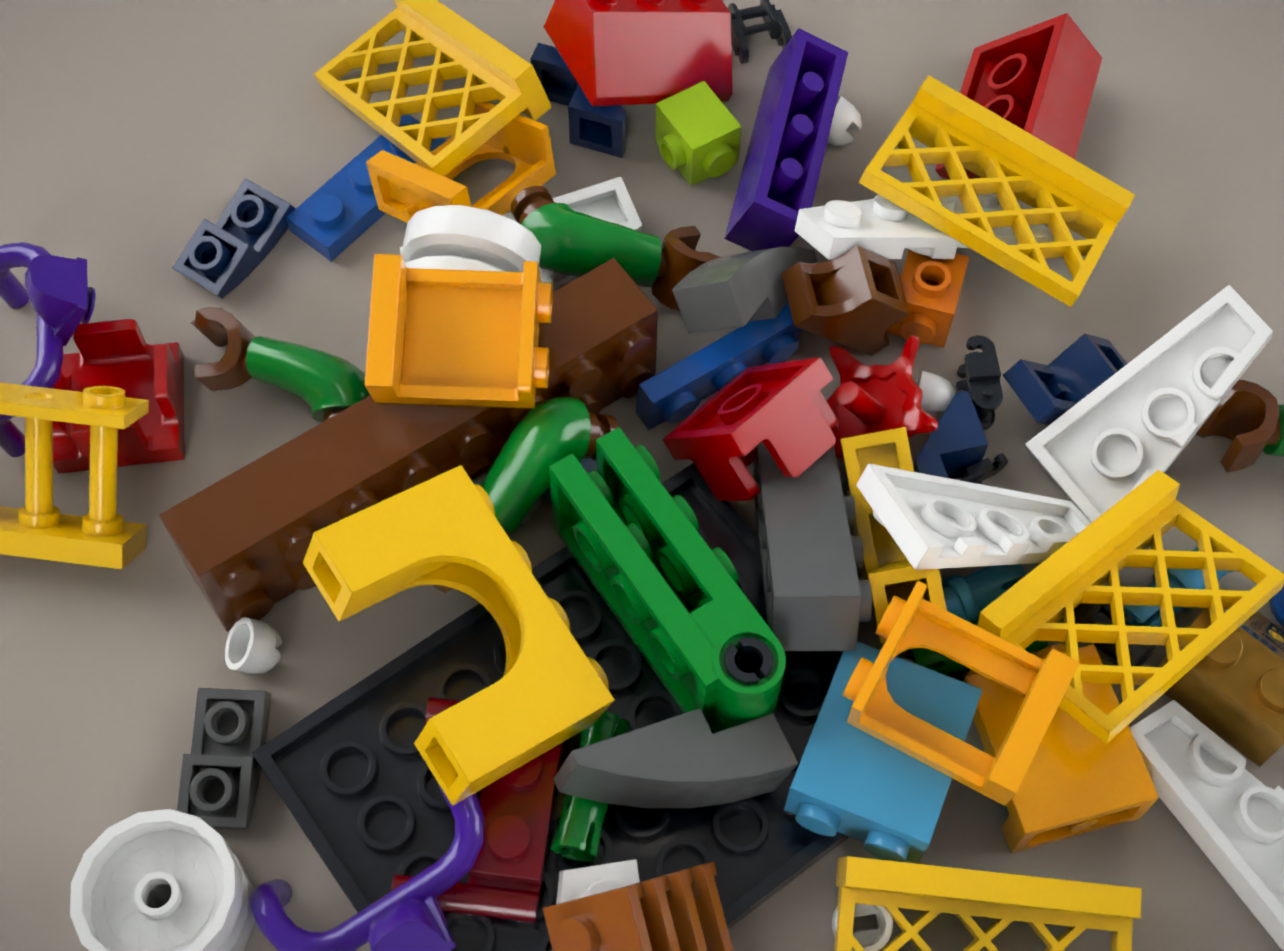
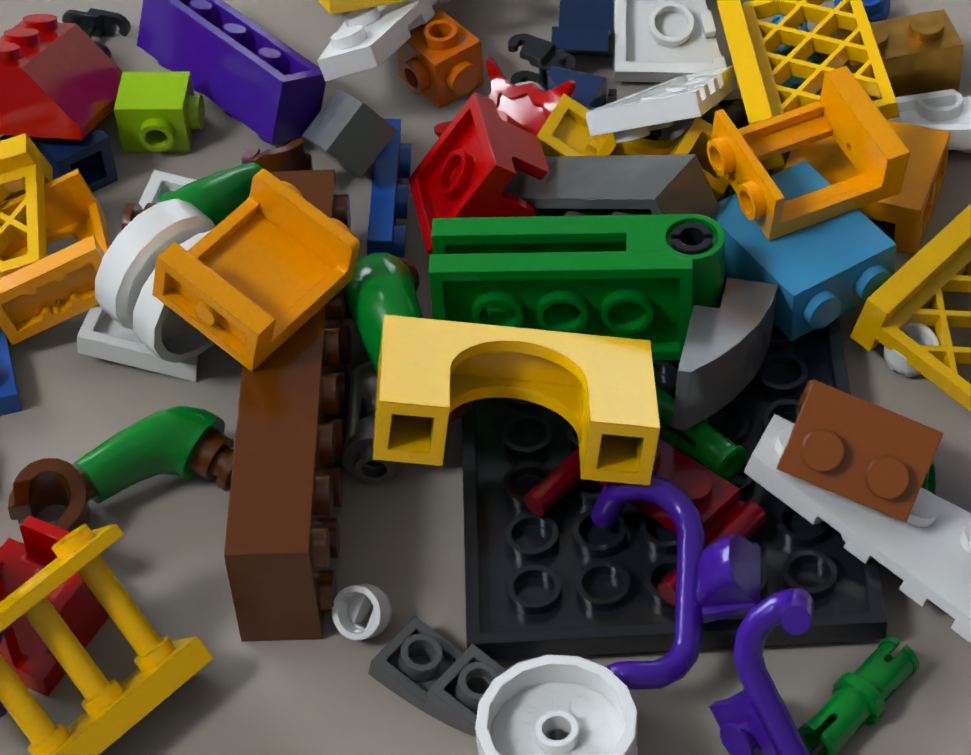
camera: 50 degrees left, 15 degrees down
(847, 299) = (413, 85): reddish brown brick -> none

